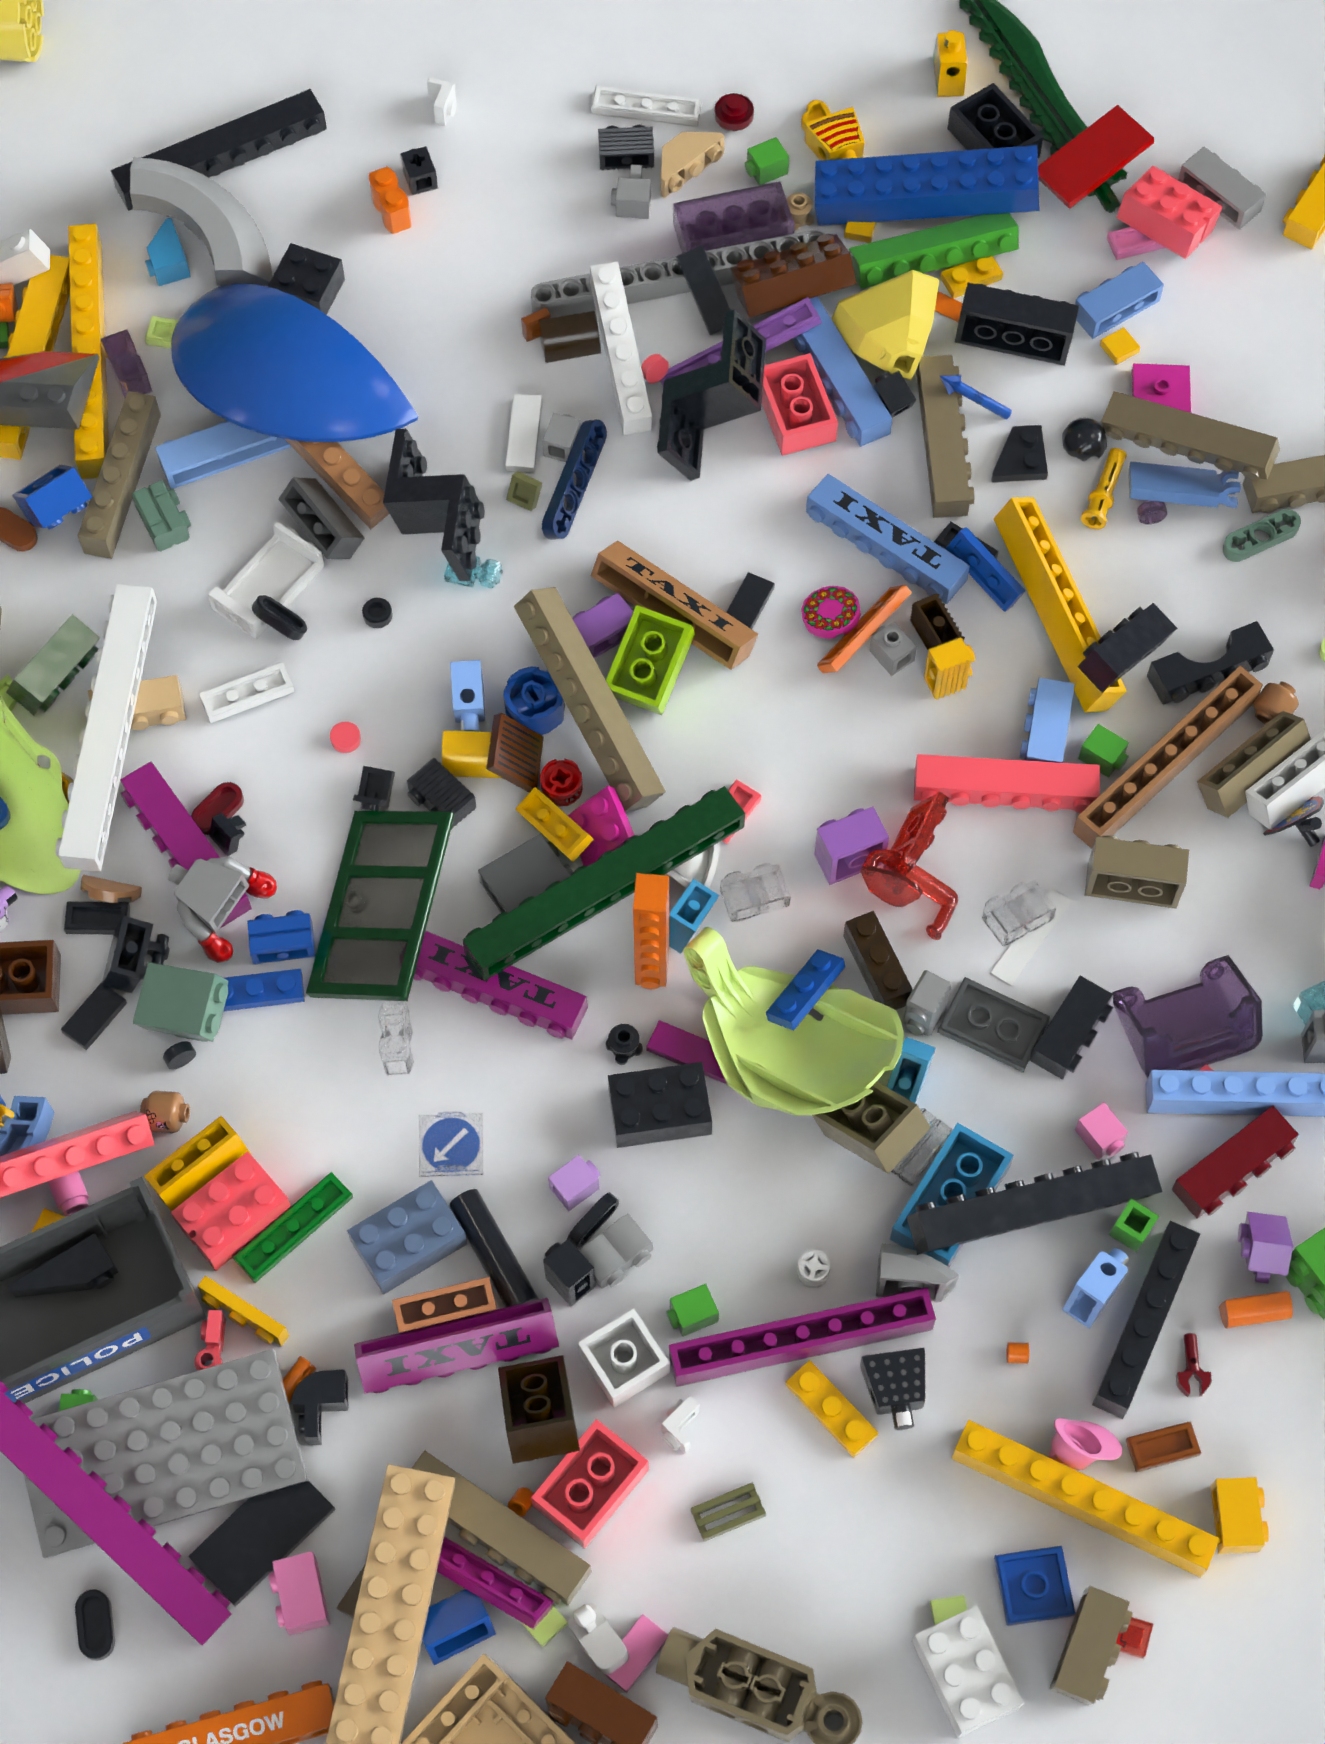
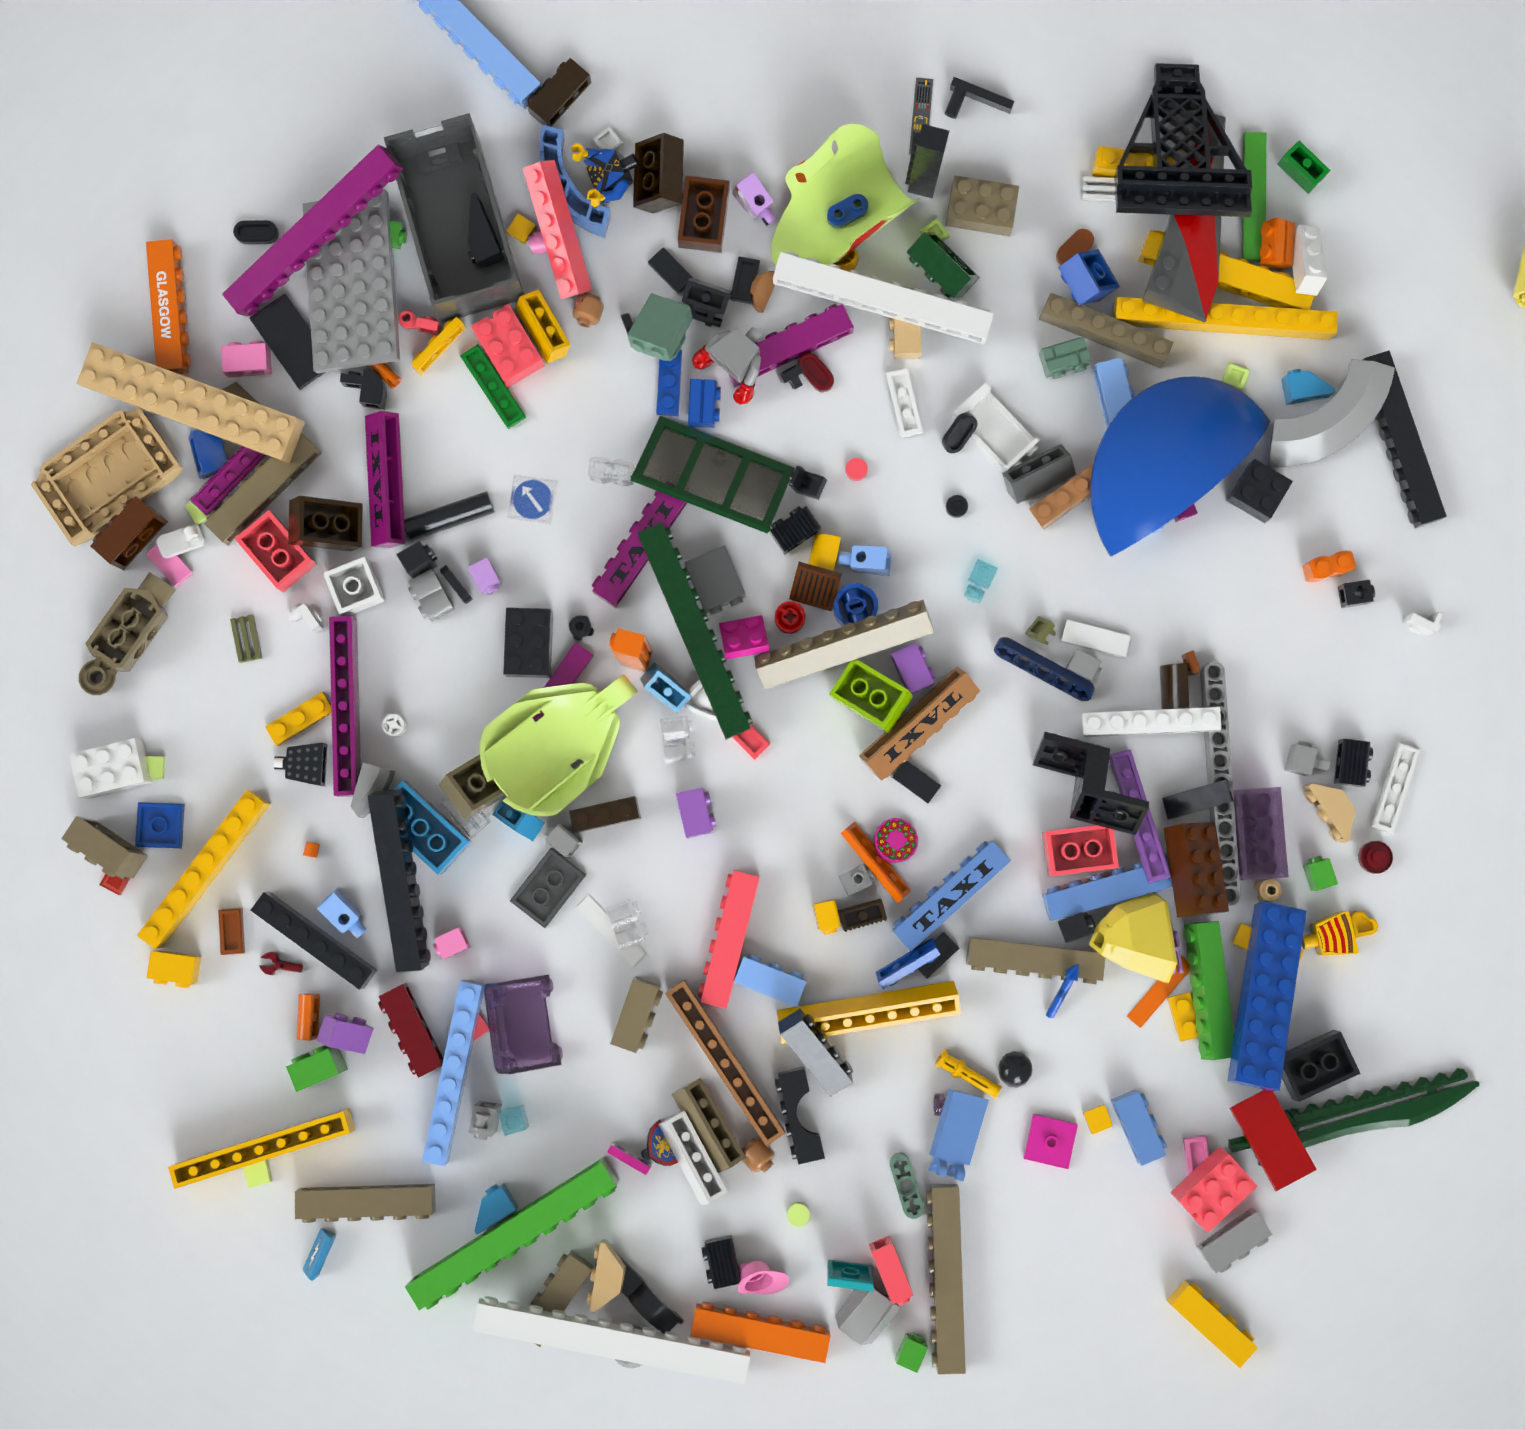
camera: 100 degrees right, 20 degrees up
(126, 363) = (1213, 342): clear purple brick -> none
(407, 1237) = (466, 459): sand blue brick -> none
(433, 504) = (1036, 540): black bracket -> none
(443, 1304) = (413, 475): nougat brick -> none
(521, 1501) = (276, 507): orange piece -> none
(554, 824) = (753, 605): yellow plate -> none
(654, 368) = (1131, 746): coral tile -> none
(692, 1310) = (380, 639): bright green brick -> none
(805, 989) = (591, 758): blue plate -> none
(901, 879) = (682, 852): clear red plate -> none
(950, 52) = (1393, 1044): yellow torso -> none
(1016, 323) = (1123, 1038): black brick -> none
(1022, 456) = (1009, 1017): black wing -> none
(1072, 1028) = (531, 941): black brick -> none
(1082, 1443) = (239, 878): bright pink piece -> none
(1104, 749) = (742, 1017): bright green brick -> none
(1133, 1225) = (377, 947): bright green brick -> none
(1190, 435) = (995, 1148): dark tan brick -> none

